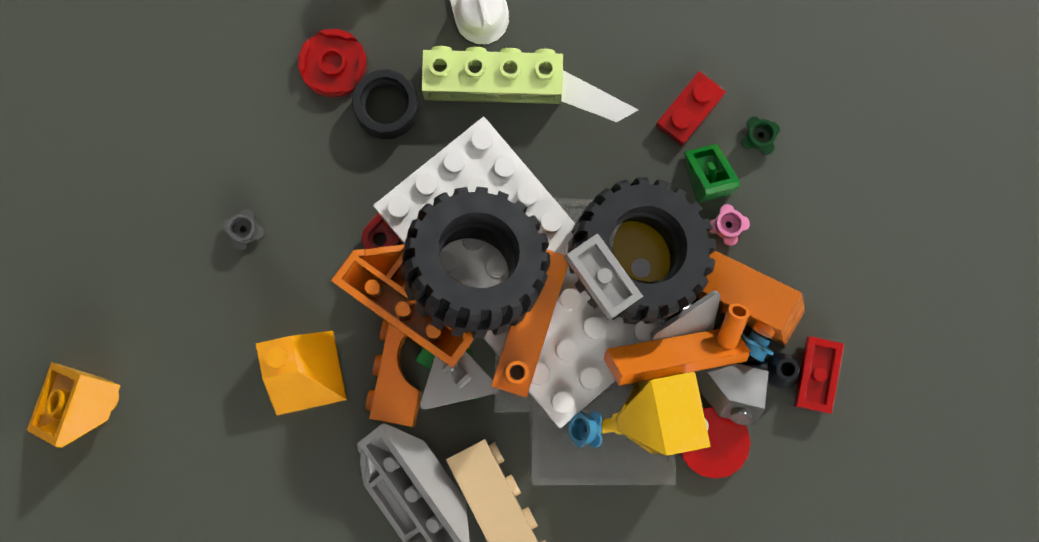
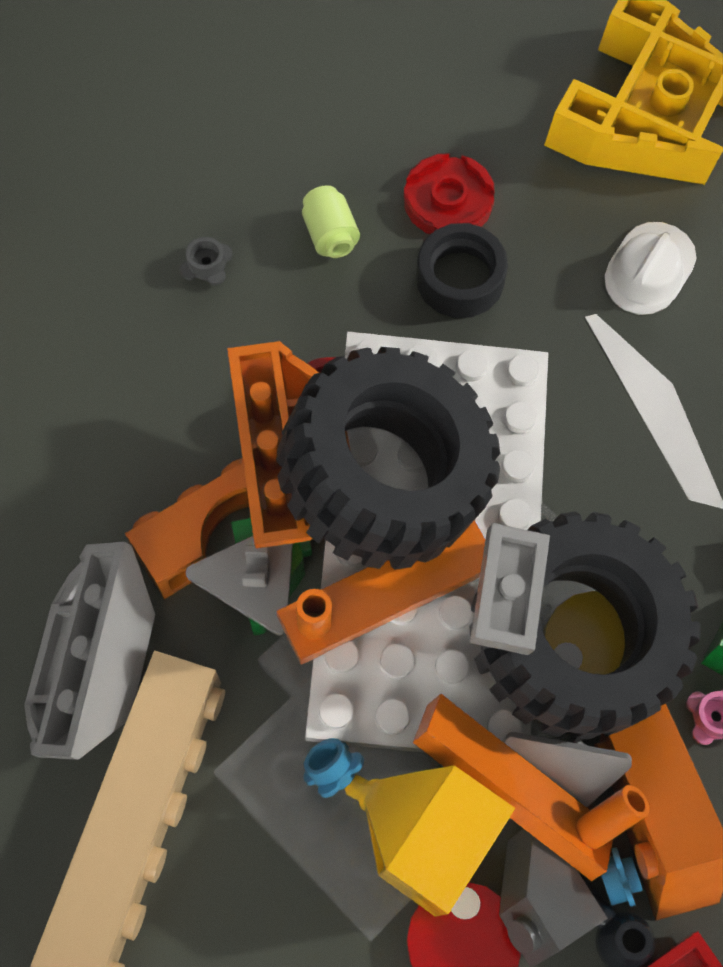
camera: 50 degrees right, 15 degrees down
(288, 143) = (330, 222): none -> yellowish green brick
(301, 371) = (114, 433): light orange slope -> none
(492, 76) = (598, 336): yellowish green brick -> none

